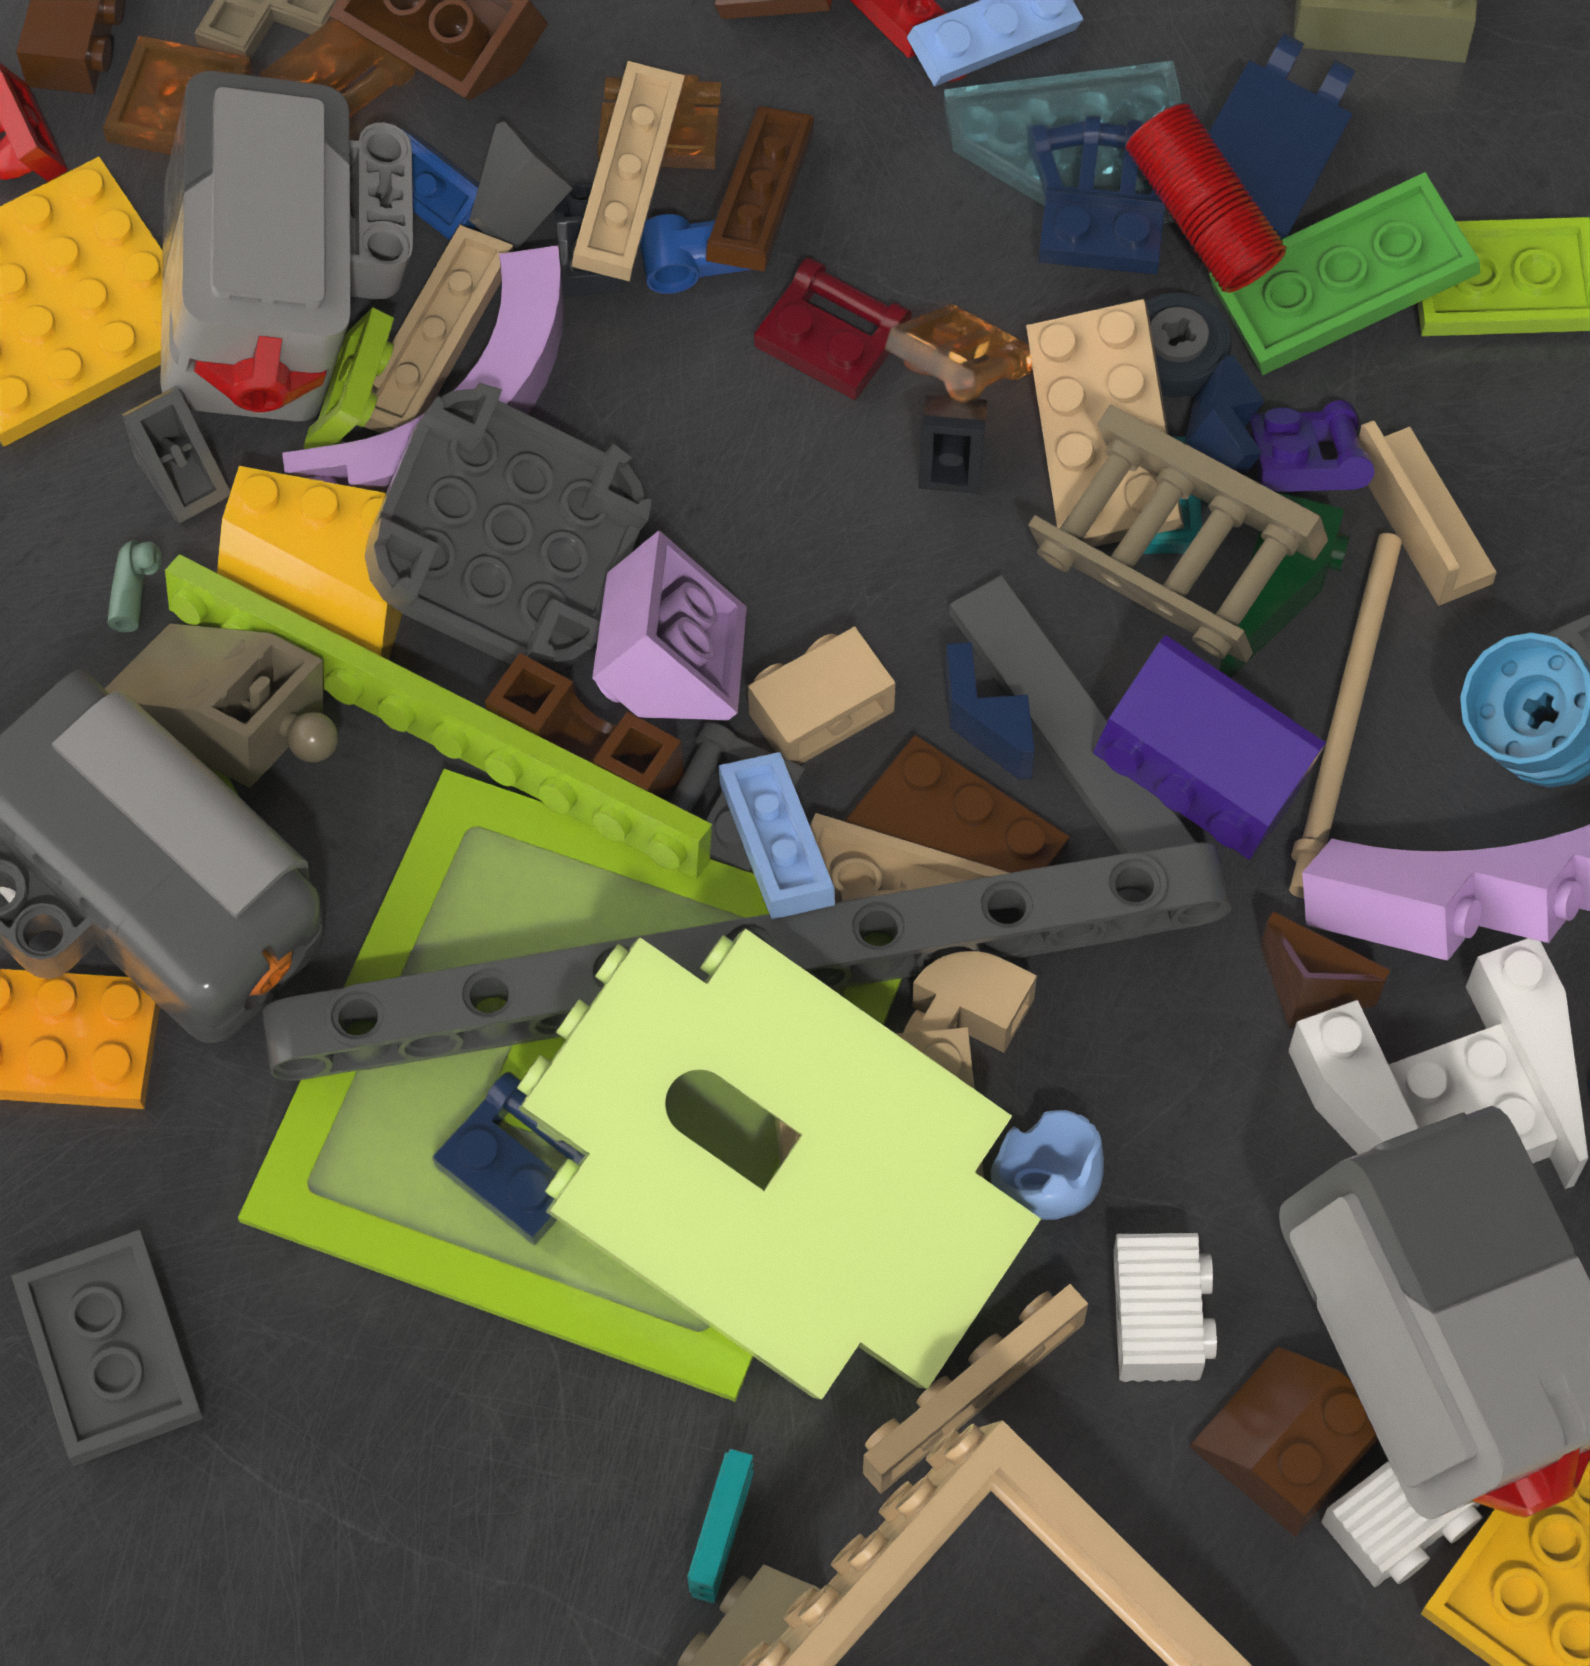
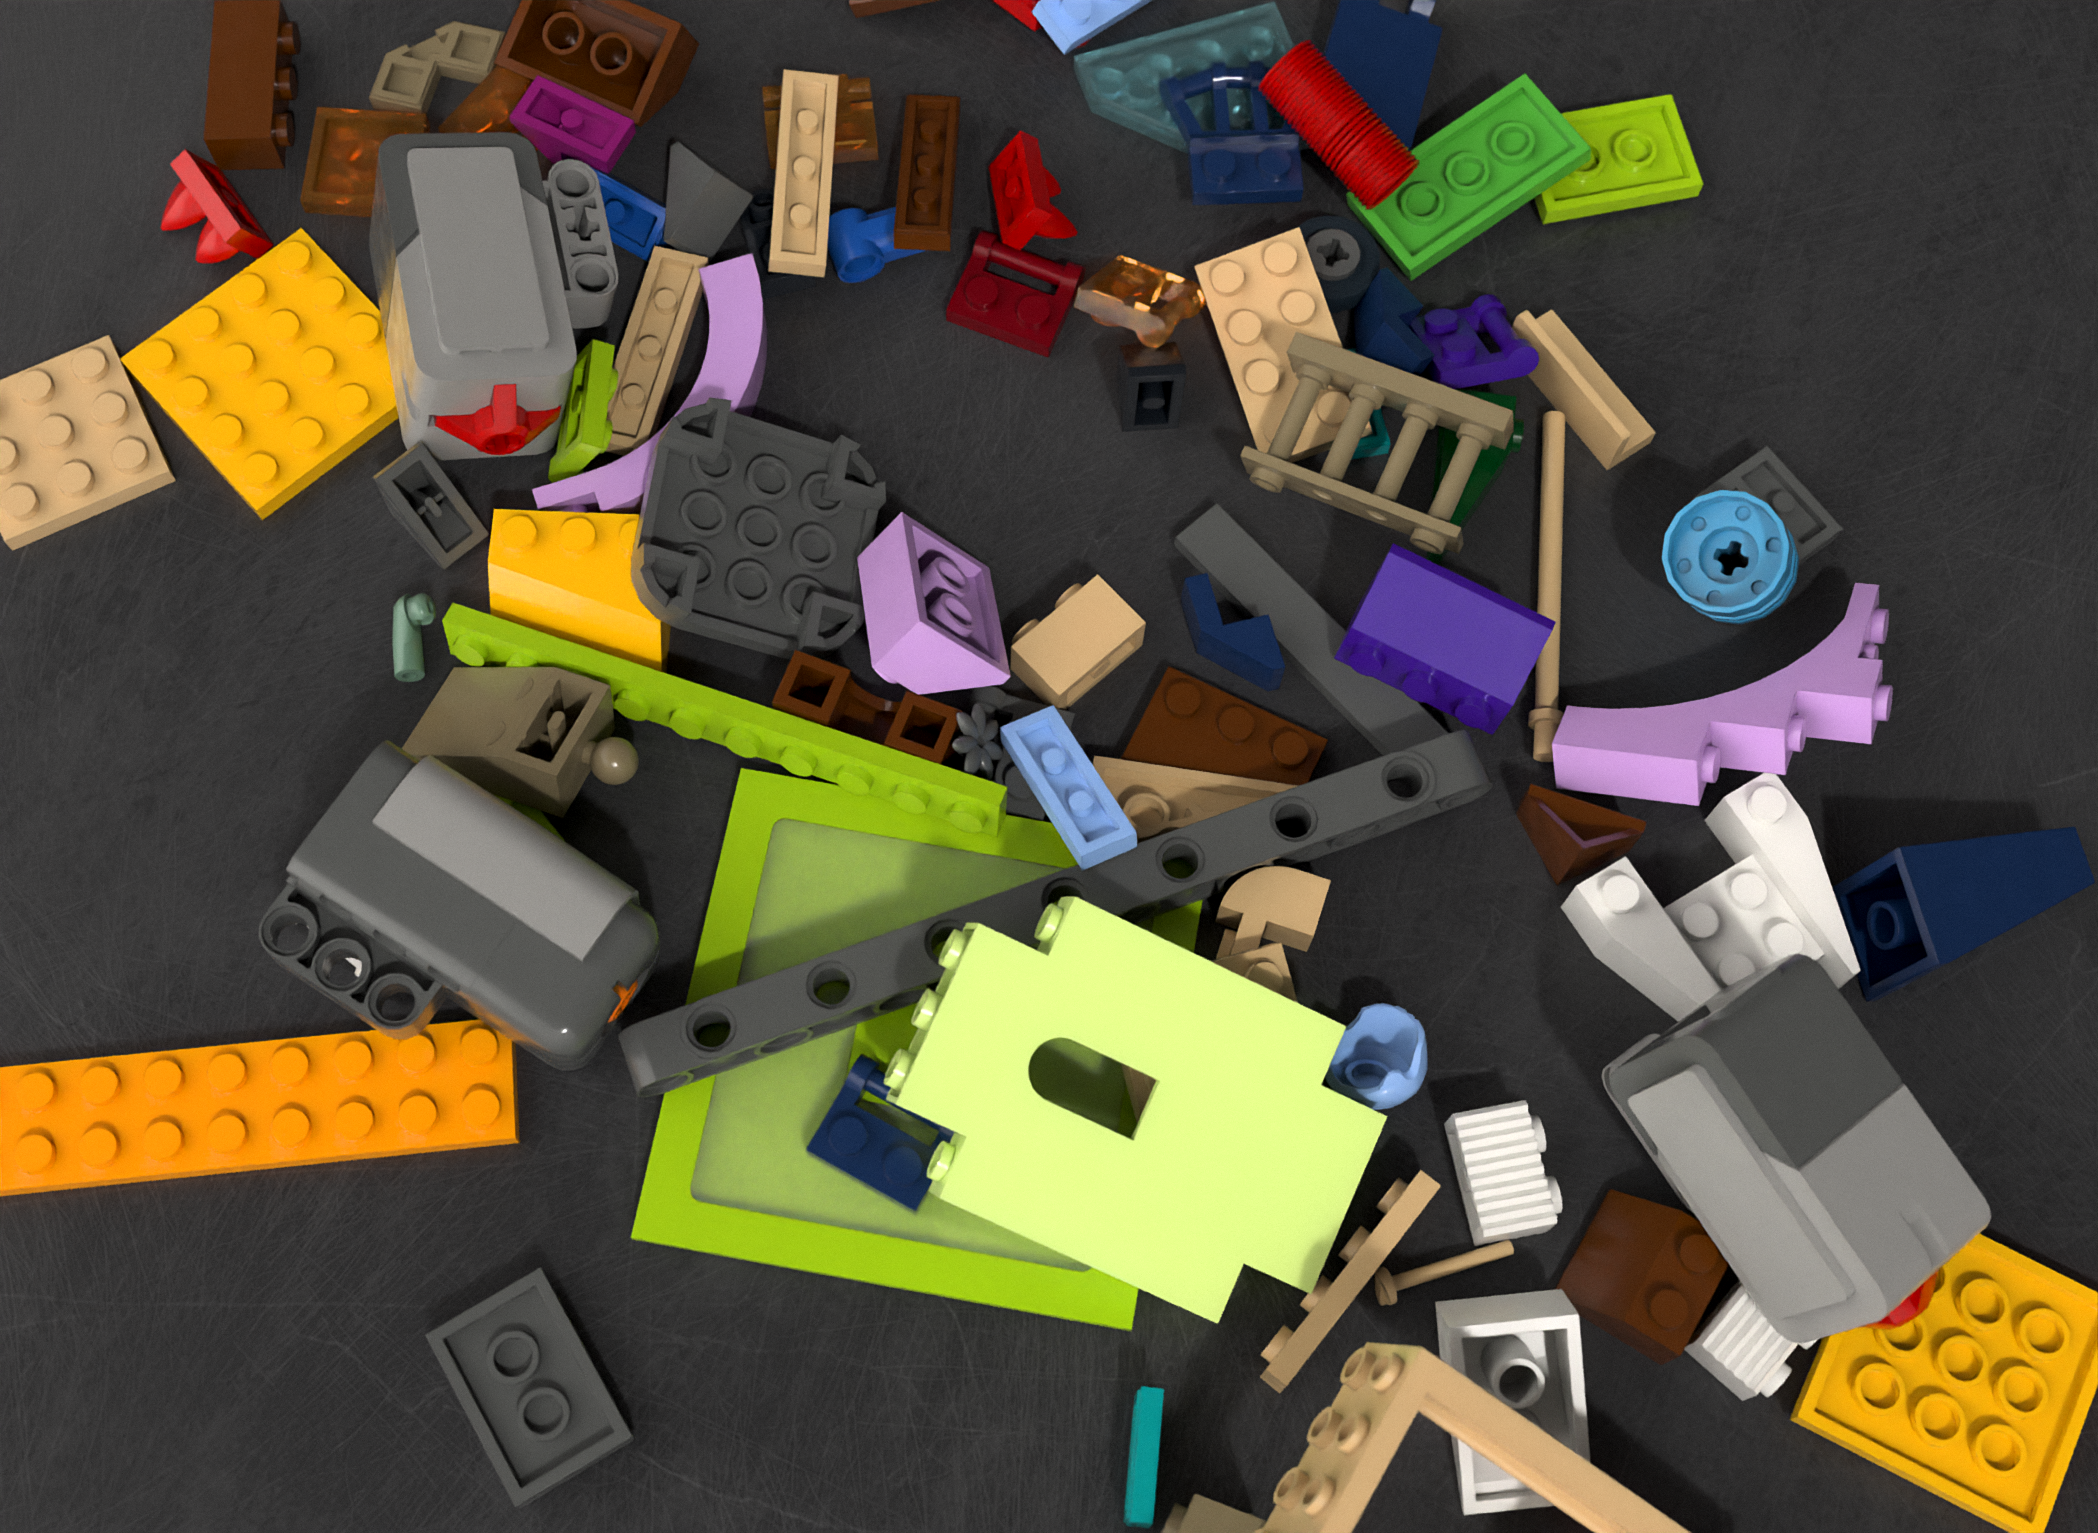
camera: 15 degrees left, 5 degrees up
(396, 89) = (571, 126): none -> magenta slope
(691, 776) = (975, 742): none -> dark grey plant
(857, 226) = (1023, 195): none -> red tile
(1017, 1401) = (1387, 1285): none -> tan piece
(1149, 1496) = (1531, 1360): none -> white slope

